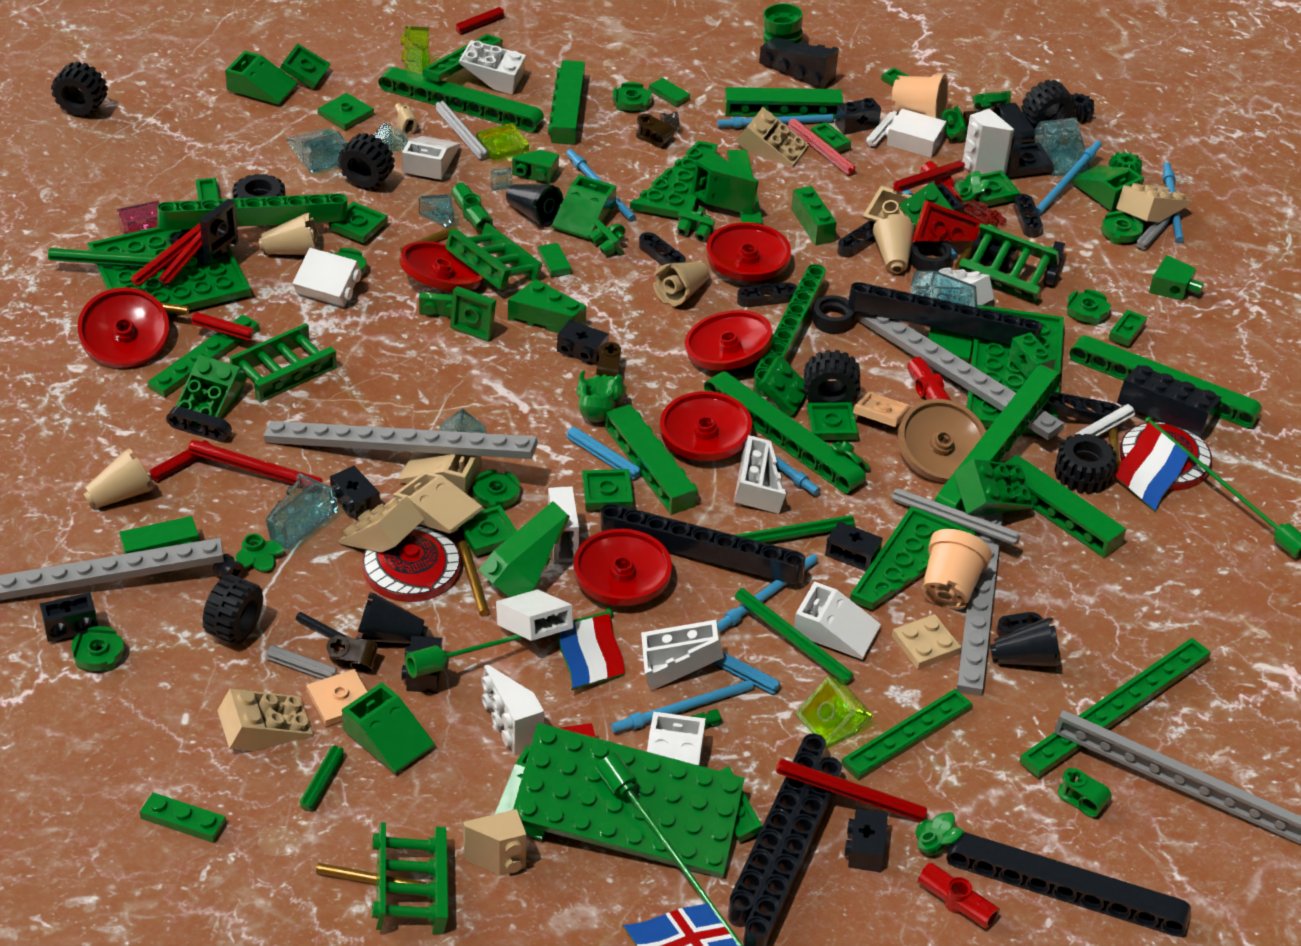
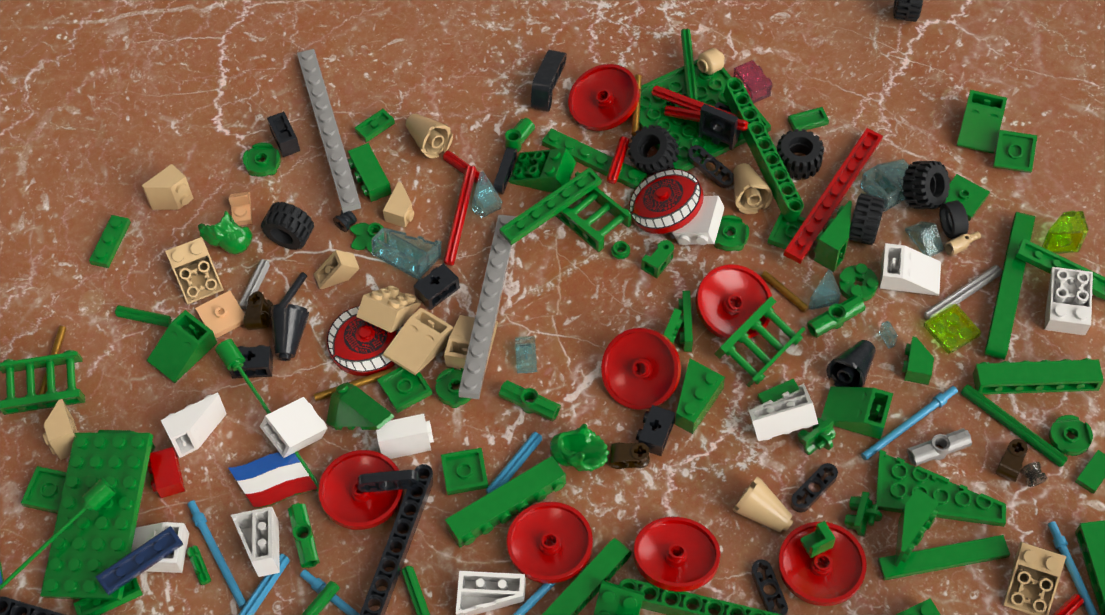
camera: 90 degrees right, 15 degrees up
(75, 367) = (546, 79): none -> black beam
(81, 535) = (374, 125): none -> green plate
(109, 236) = (710, 61): none -> tan head
(126, 732) = (168, 190): none -> tan slope
(151, 408) = (517, 135): none -> green piece
(165, 674) = (241, 208): none -> light nougat slope
(222, 279) = (644, 141): none -> black tyre
(223, 517) = (399, 207): none -> tan slope
(228, 671) = (227, 235): none -> green hair
(236, 437) = (485, 197): none -> clear light blue slope
(253, 263) = (710, 174): none -> black beam
(279, 377) = (550, 206): none -> green plate
(292, 295) = (666, 201): none -> dish
(305, 581) = (336, 269): none -> tan slope
(323, 182) = (833, 196): none -> red plate
(337, 115) = (926, 184): none -> black tyre
(343, 345) = (623, 246): none -> green plate
(365, 317) = (659, 259): none -> green leg
(375, 100) = (953, 219): none -> black tyre
(380, 185) = (834, 240): none -> green slope
(430, 186) = (858, 273): none -> green plate
(514, 333) = (641, 368): none -> red dish
(535, 422) = (519, 395): none -> green piece
(574, 869) = (44, 490): none -> green plate
(584, 248) = (784, 415): none -> white wedge
(612, 127) = (1014, 425): none -> green axle
(624, 531) = (388, 481): none -> black beam
(632, 168) = (950, 442): none -> light grey piece
(669, 617) = (305, 546): none -> green piece
(703, 747) = (139, 560): none -> dark blue tile
(730, 240) = (818, 541): none -> green panel

